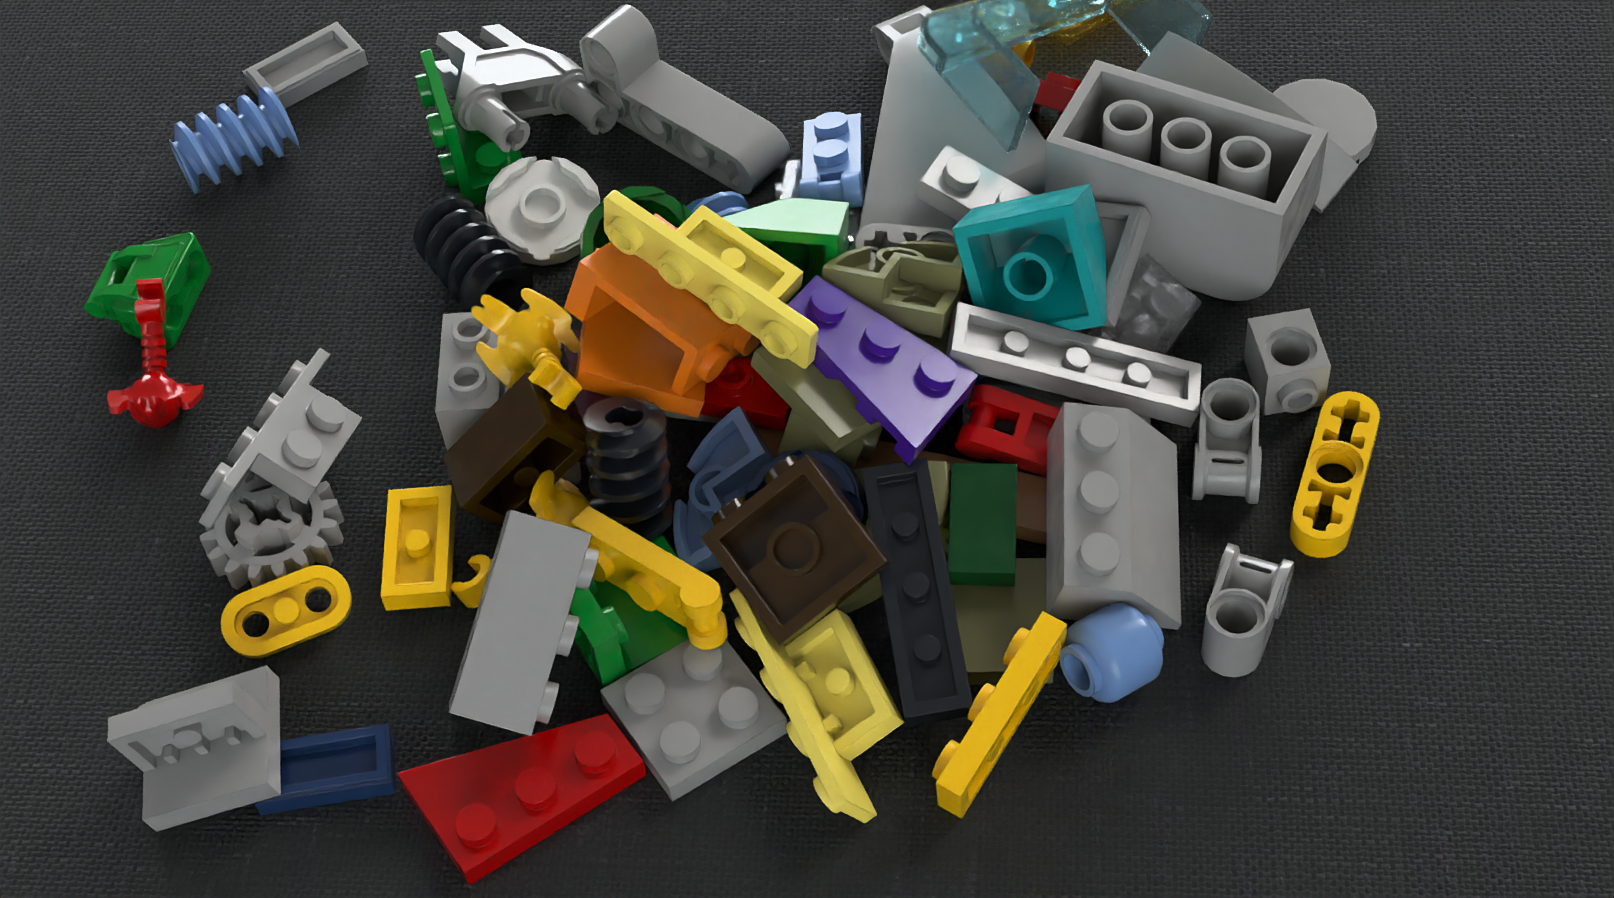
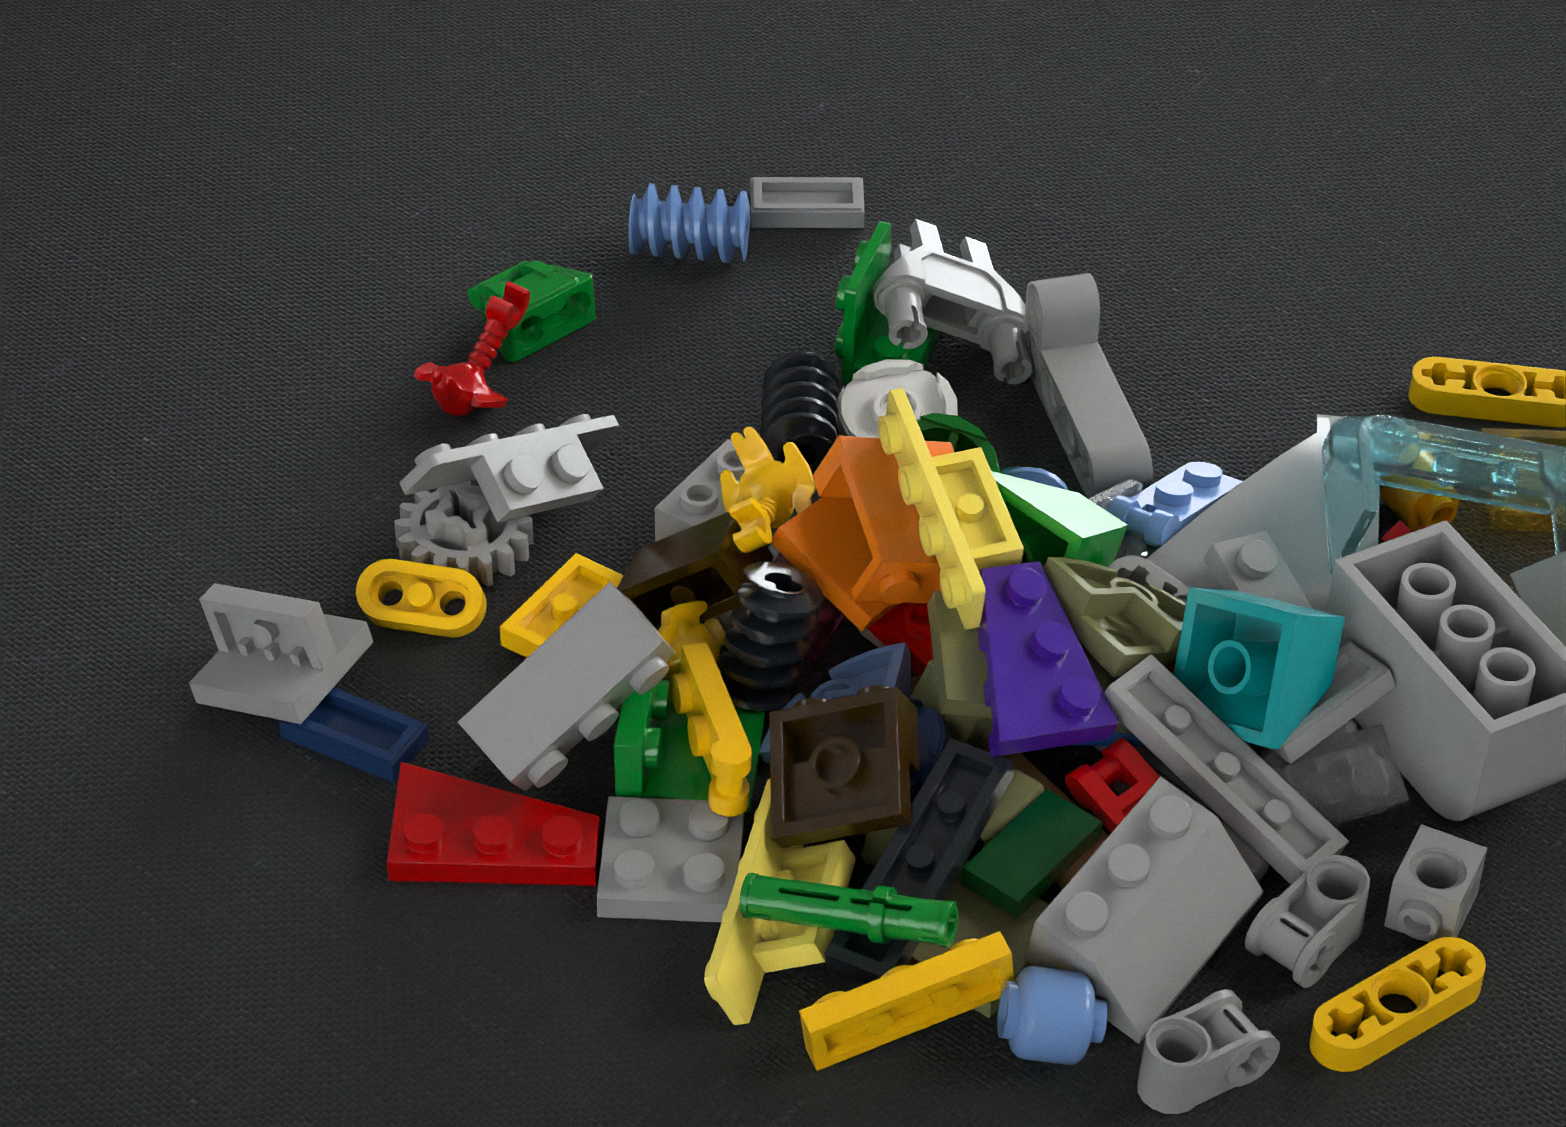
camera: 30 degrees right, 10 degrees down
(906, 668) = (876, 913): none -> green pin

